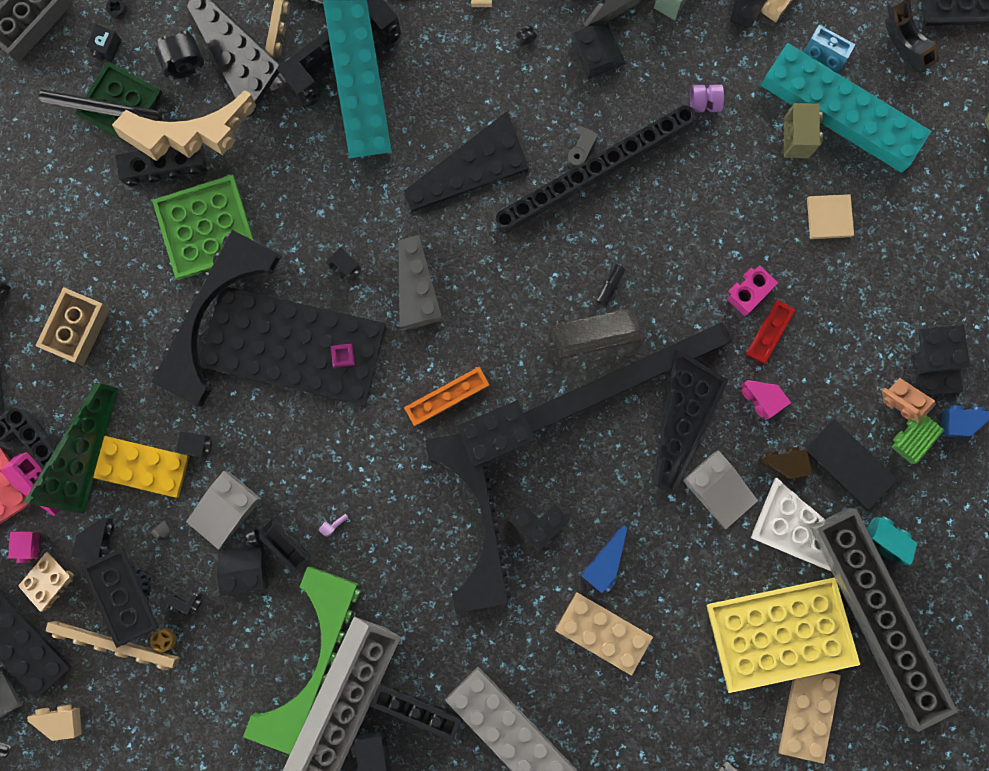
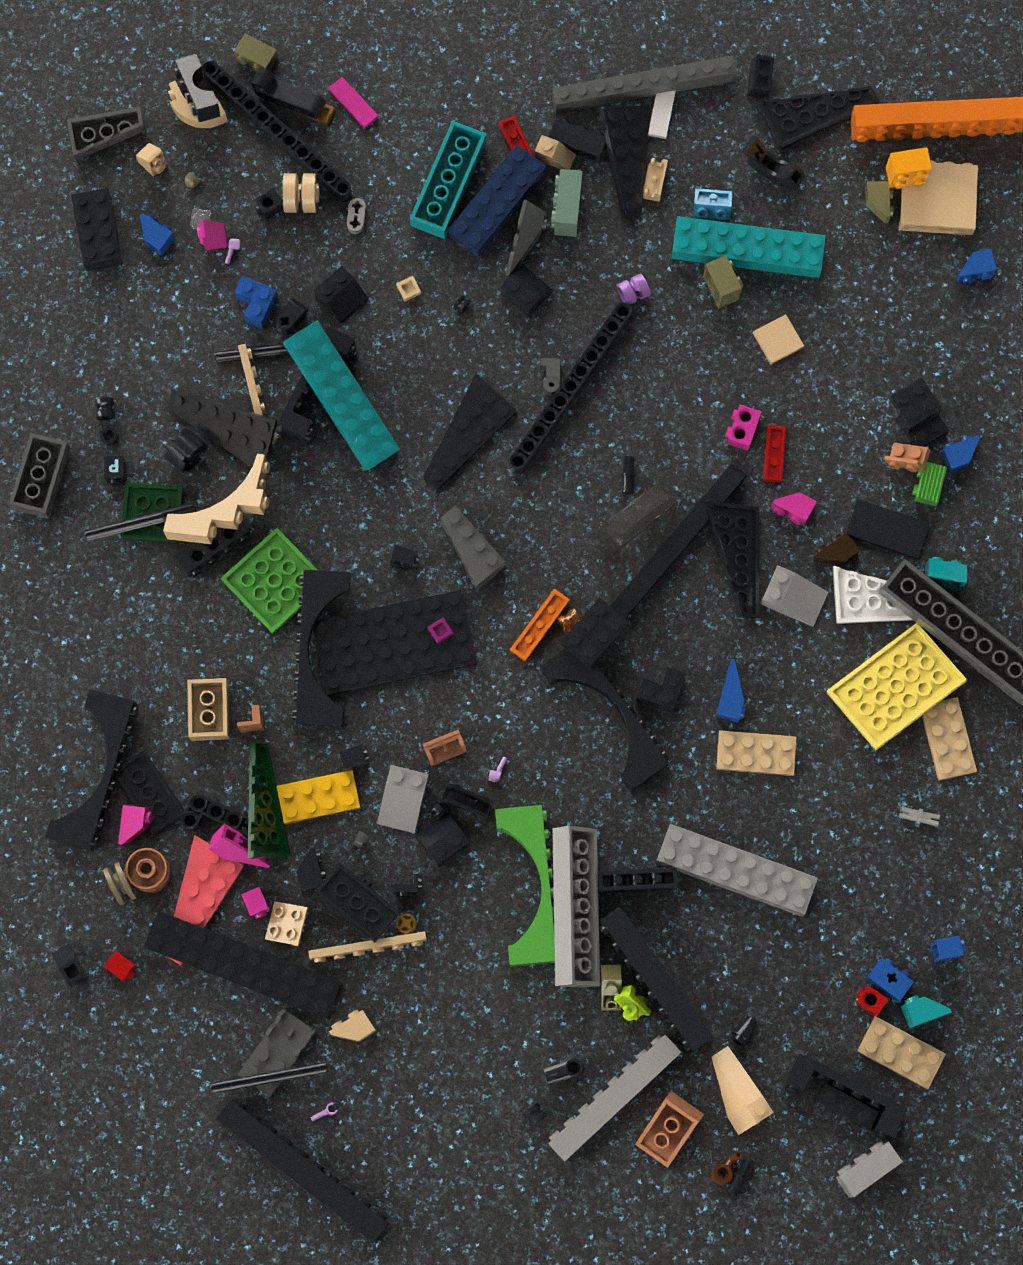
camera: 25 degrees left, 5 degrees down
(114, 358) = (255, 725): none -> nougat panel
(289, 477) = (444, 747): none -> nougat hinge
(473, 406) = (569, 620): none -> clear orange wheel

